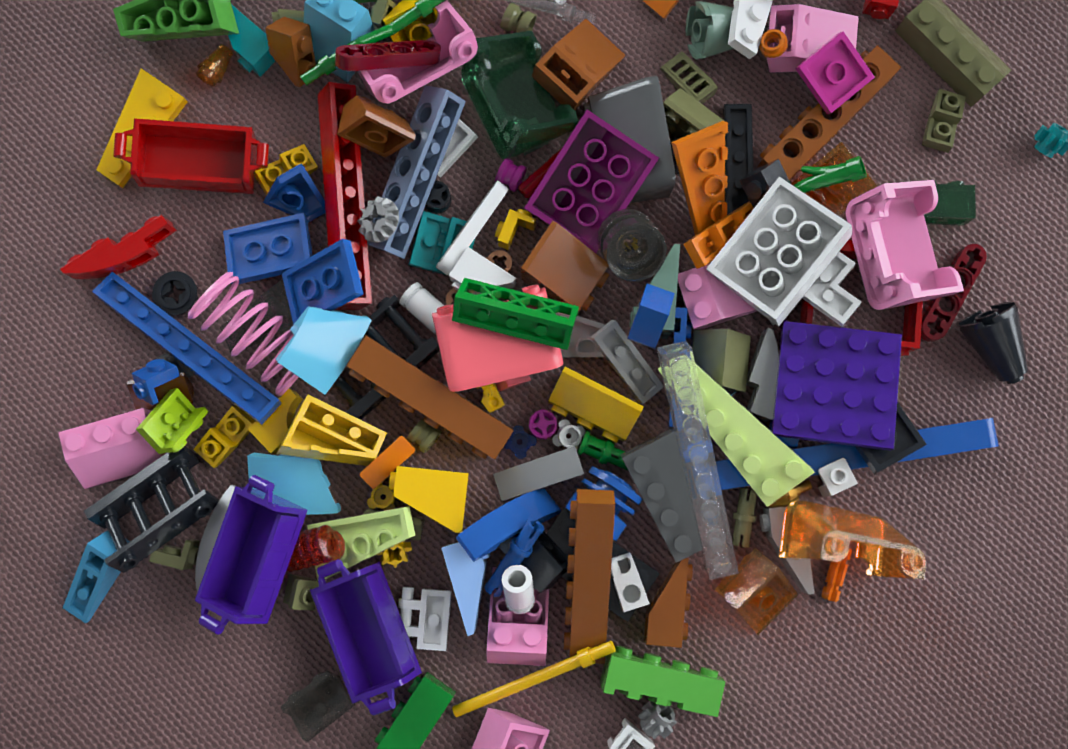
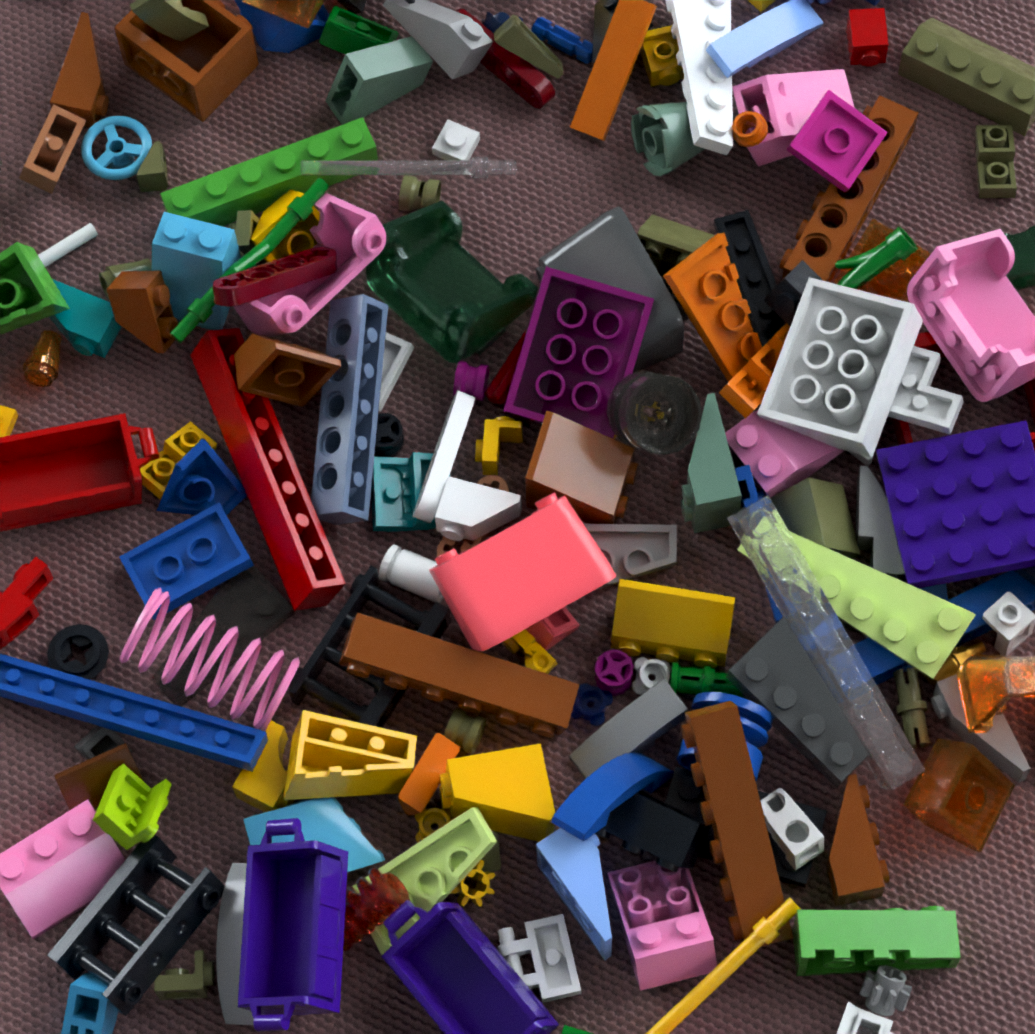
camera: 15 degrees left, 15 degrees down
(153, 375) = (84, 760): blue bracket -> none
(225, 437) = (201, 813): yellow slope -> none
(298, 592) = (366, 975): olive bracket -> none
(322, 345) = (304, 644): medium azure slope -> none
(323, 280) = (276, 573): blue plate -> none
(383, 228) = (335, 481): light grey gear -> none
(513, 316) = (537, 529): green fence -> none
(518, 589) = (651, 869): white piece -> none
(519, 549) = (635, 819): blue pin -> none
(577, 64) = (512, 225): dark orange slope -> none
(627, 361) = (695, 558): light grey plate -> none
(651, 316) = (707, 486): blue slope -> none
(702, 79) = (687, 204): olive slope -> none

